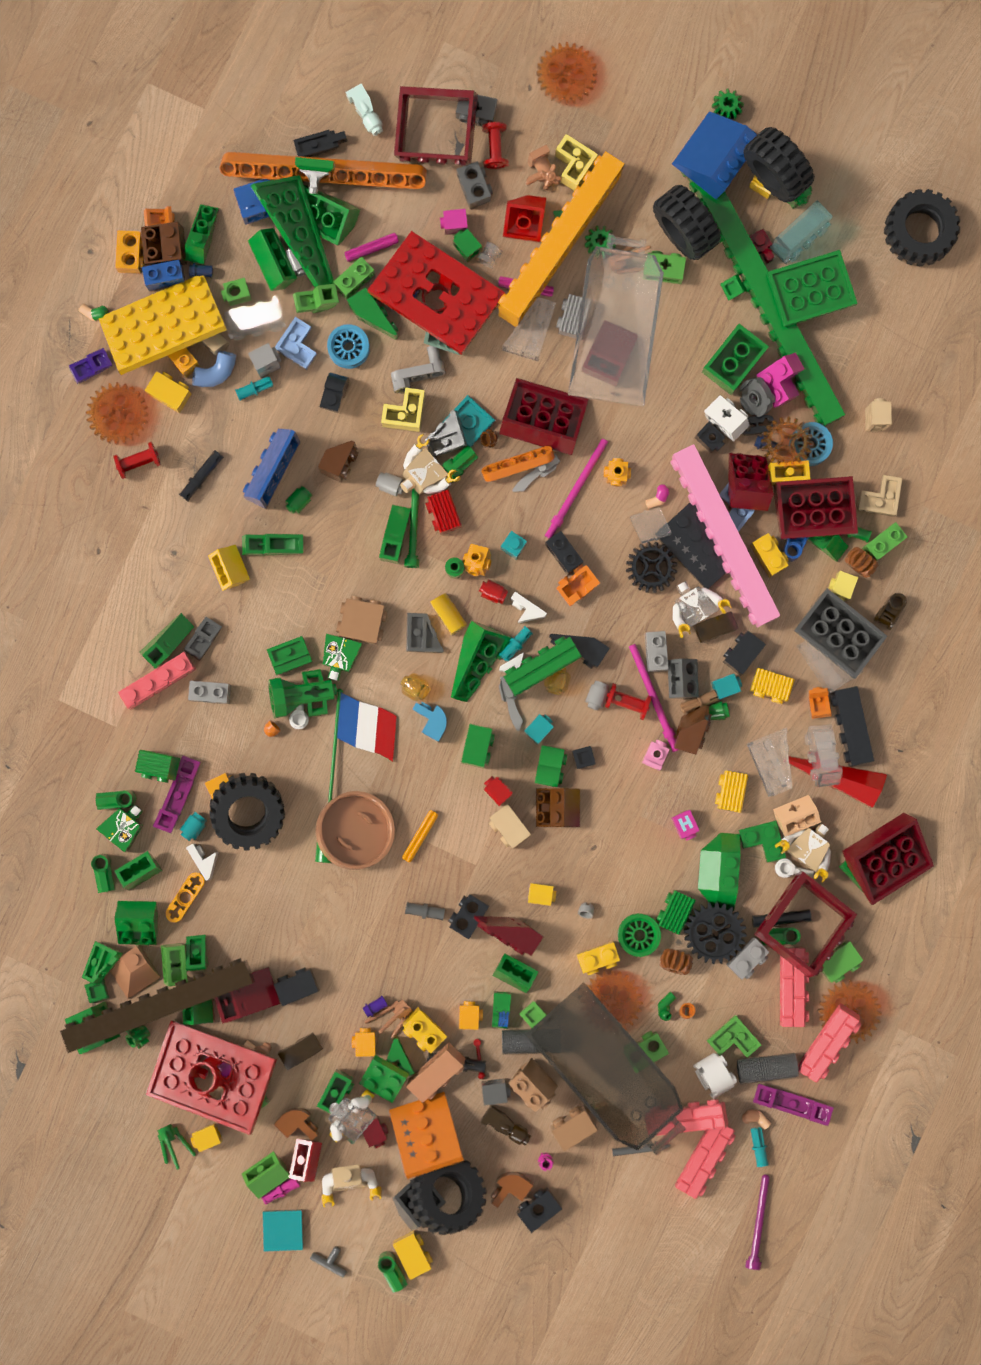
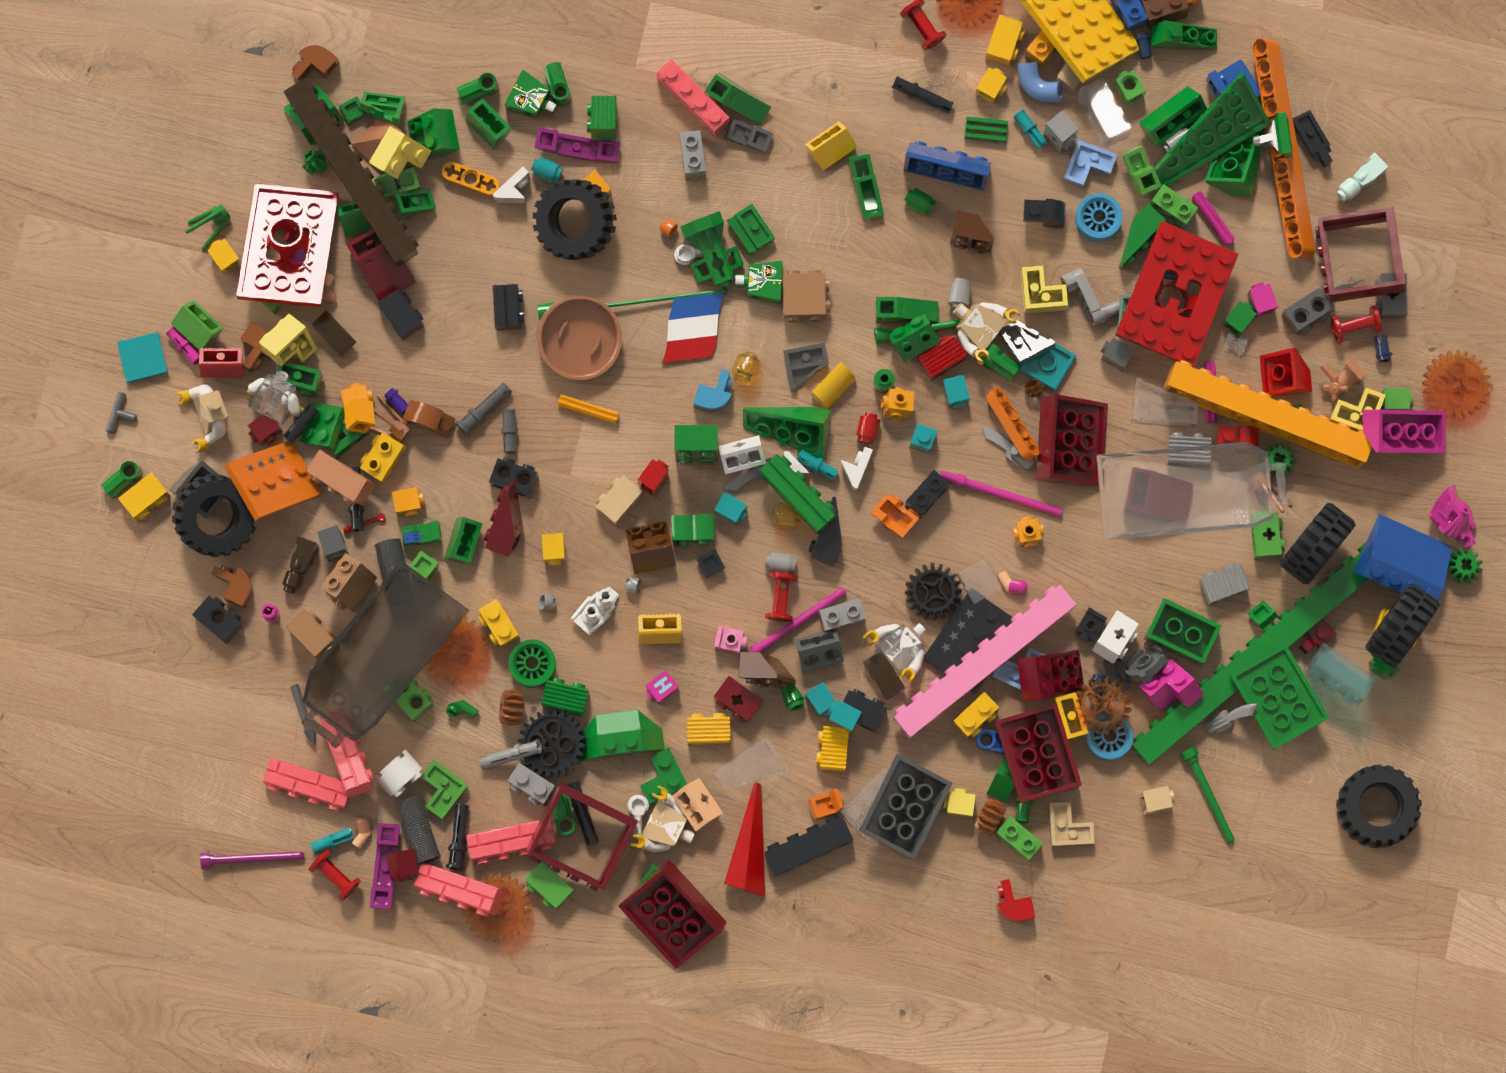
camera: 80 degrees right, 5 degrees down
(40, 1015) = (315, 58): none -> dark orange brick
(148, 960) = (395, 152): none -> light yellow brick
(206, 412) = (992, 85): none -> yellow brick
(240, 442) = (985, 121): none -> green tile
(300, 1096) = (288, 340): none -> light yellow brick
(311, 889) = (507, 307): none -> black brick
(377, 1098) = (300, 423): none -> black pin
(384, 1044) = (359, 415): none -> light orange brick
(398, 981) = (429, 417): none -> dark orange brick
(402, 934) = (476, 415): none -> dark grey pin
(422, 532) = (914, 338): none -> green brick
(475, 358) = (1117, 354): none -> dark grey brick
(477, 506) = (956, 392): none -> teal brick
(493, 708) = (742, 454): none -> white brick
(521, 128) = (1383, 351): none -> dark blue pin
(570, 125) = (1397, 399): none -> bright green brick
(573, 271) = (1236, 434): none -> red brick
(588, 830) = (633, 585): none -> light grey hinge
(602, 124) = (1405, 430): none -> dark pink slope
(603, 868) = (595, 610): none -> white connector
(634, 815) = (659, 629): none -> yellow brick
(683, 104) = (1453, 517): none -> dark pink helmet
(691, 1011) = (461, 727): orange hinge -> none
(697, 703) = (797, 673): medium nougat axle -> none
(699, 313) = (1224, 584): none -> light grey brick
(700, 762) = (749, 700): none -> dark red brick
(718, 964) = (517, 752): none -> light grey pin
(749, 669) = (844, 715): none -> teal brick
(789, 1036) = (457, 848): none -> black pin
(791, 1151) = (334, 875): none -> red hose
(796, 1089) = (402, 865): none -> dark red brick
(818, 341) = (1224, 720): none -> light grey piece
(823, 755) = (768, 817): clear wedge -> none
(842, 378) = (1191, 757): none -> green piece
(890, 611) = (943, 861): dark brown piece -> none
(945, 559) = (1011, 909): none -> red brick

